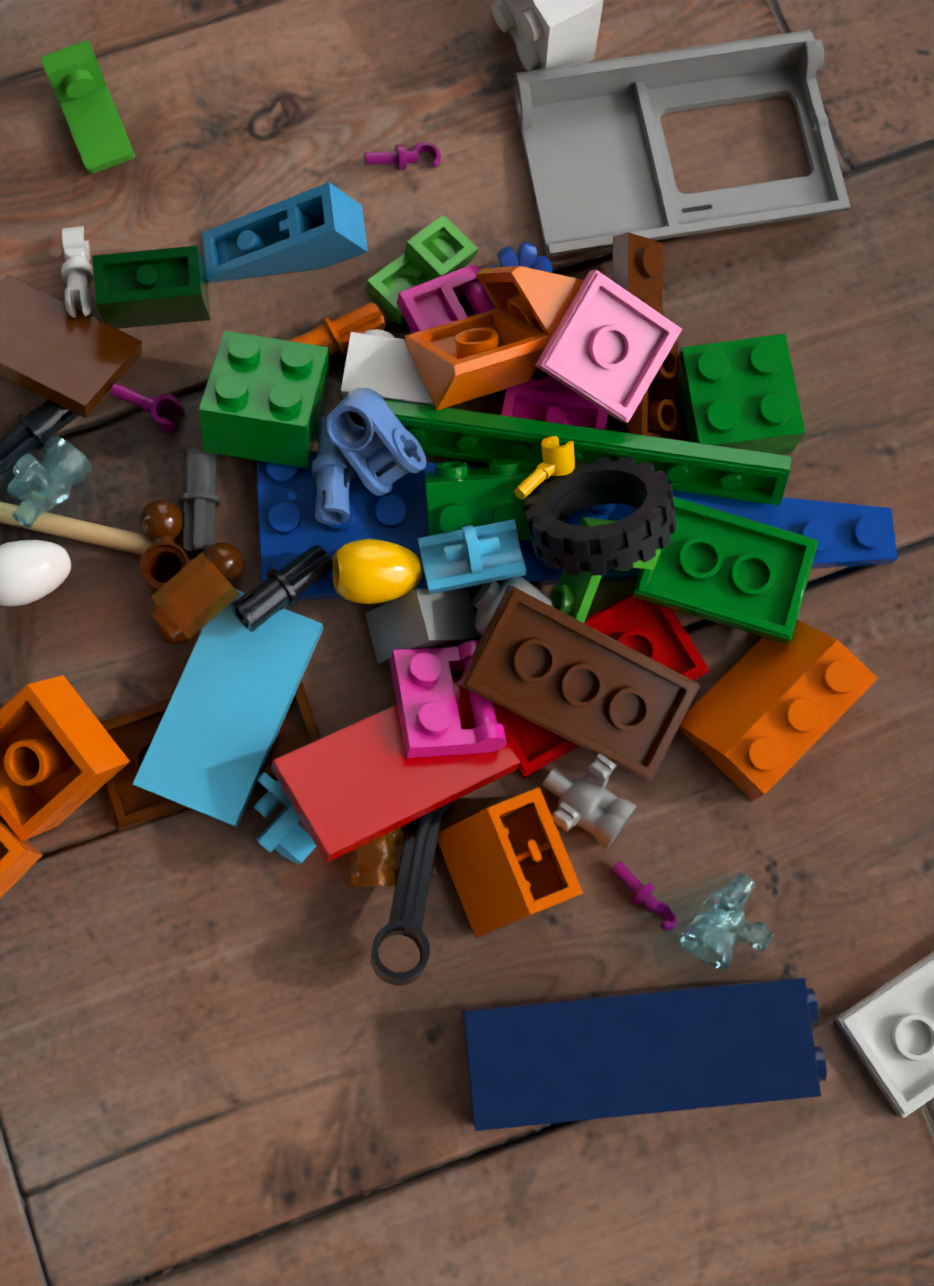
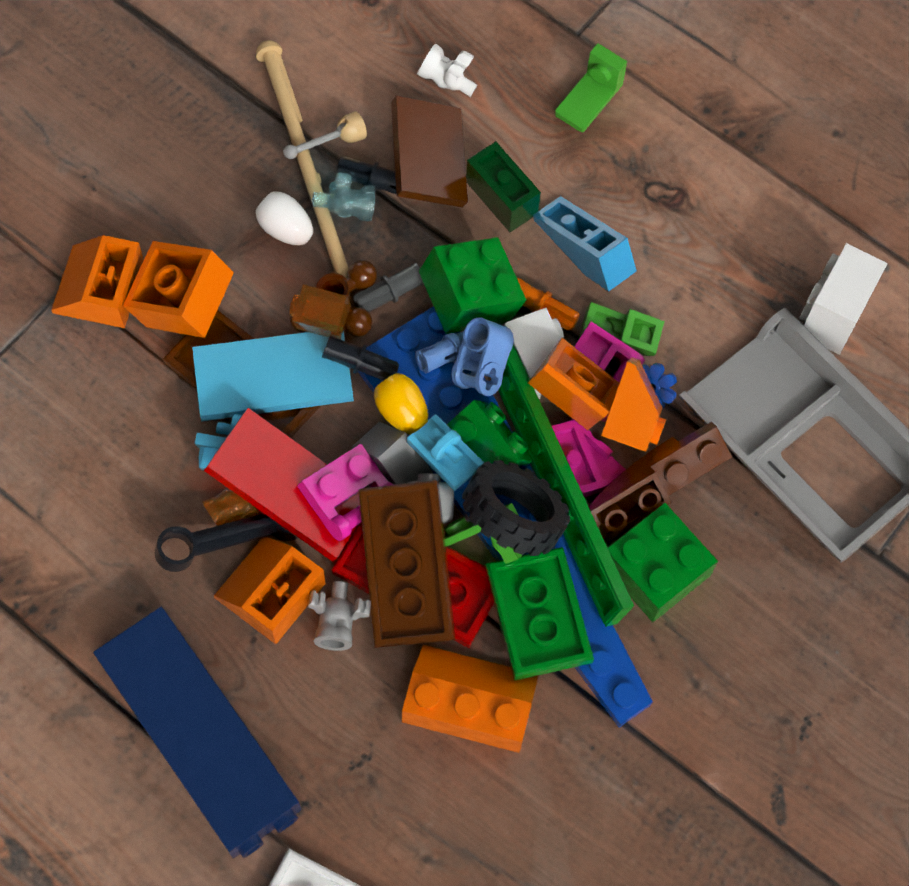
camera: 60 degrees right, 10 degrees down
(76, 271) = (499, 133): white piece -> none
(154, 406) = (431, 231): magenta hand -> none
(401, 157) = (687, 278): magenta hand -> none
(555, 462) = (539, 467): yellow hand -> none
(608, 346) = (627, 452): bright pink tile -> none
(644, 896) = (299, 683): magenta hand -> none
(721, 923) = (309, 739): clear light blue piece -> none

